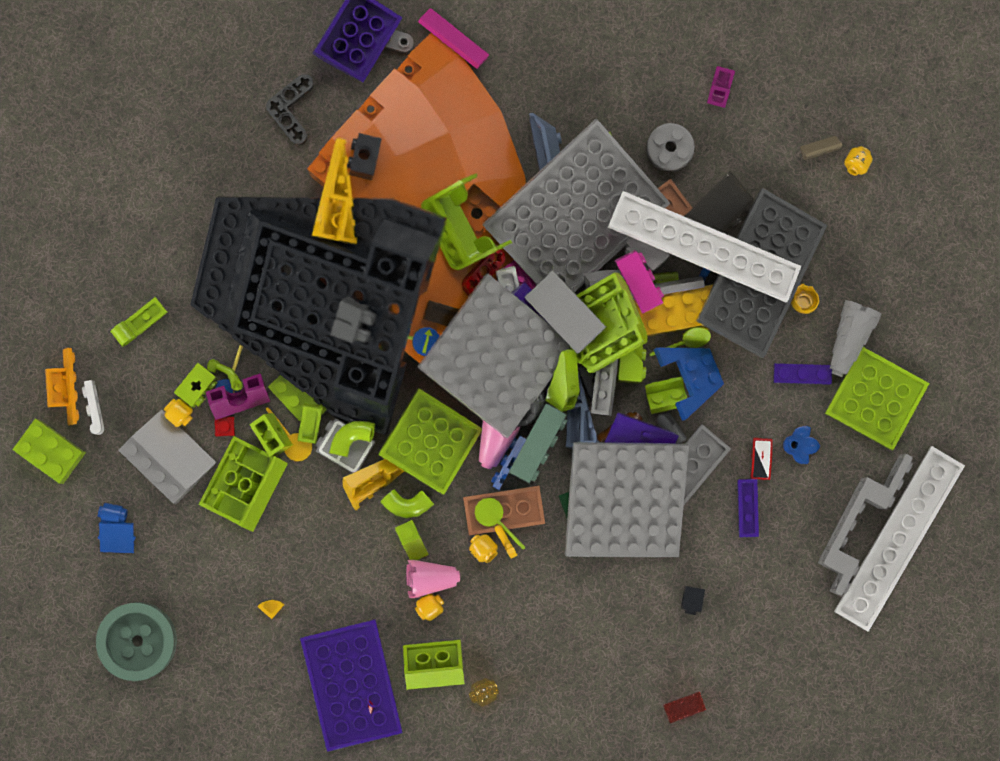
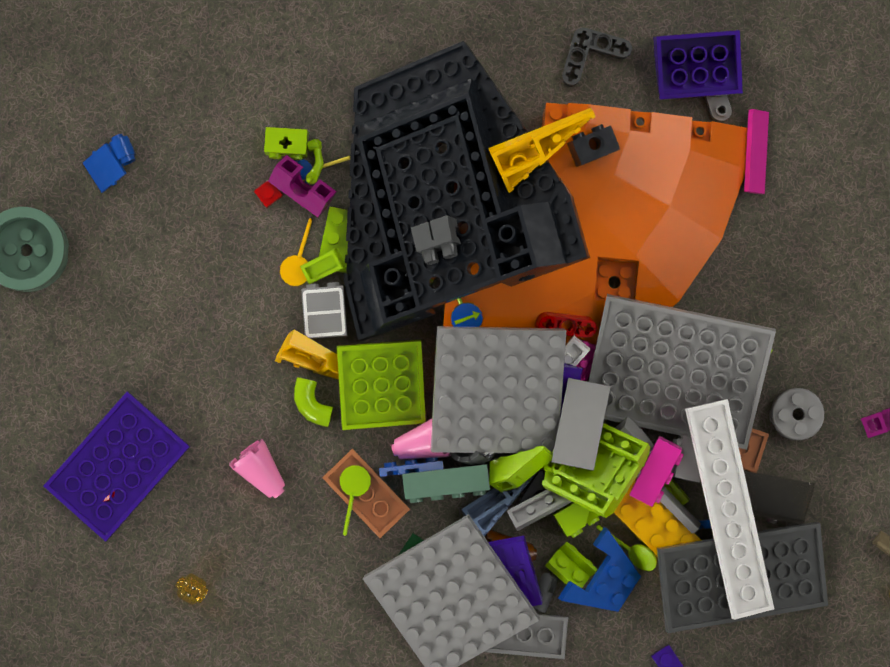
camera: 60 degrees right, 0 degrees up
(49, 451) = (138, 55): lime brick -> none
(61, 387) = (202, 26): light orange bracket -> none
(93, 408) = (204, 67): white plate -> none
(138, 322) = (307, 53): lime plate -> none
(167, 457) = (206, 162): light grey slope -> none
(178, 412) = (251, 144): yellow head -> none
(243, 484) = (228, 245): lime piece -> none
(271, 434) = (288, 239): lime brick -> none
(271, 607) = (137, 346): yellow tile -> none
(348, 434) = (336, 307): lime cylinder -> none
(411, 540) = (281, 429): lime slope -> none
(429, 606) = (234, 487): yellow head -> none
(433, 664) = (185, 526): lime slope -> none
(439, 313) = (500, 312): dark brown tile -> none
(458, 238) = (580, 280): lime windscreen -> none
(483, 548) = (319, 498): yellow head -> none
(505, 541) = (334, 524): yellow bar -> none
(545, 140) = (723, 297): sand blue wedge -> none
(805, 299) = (746, 632): yellow hair -> none

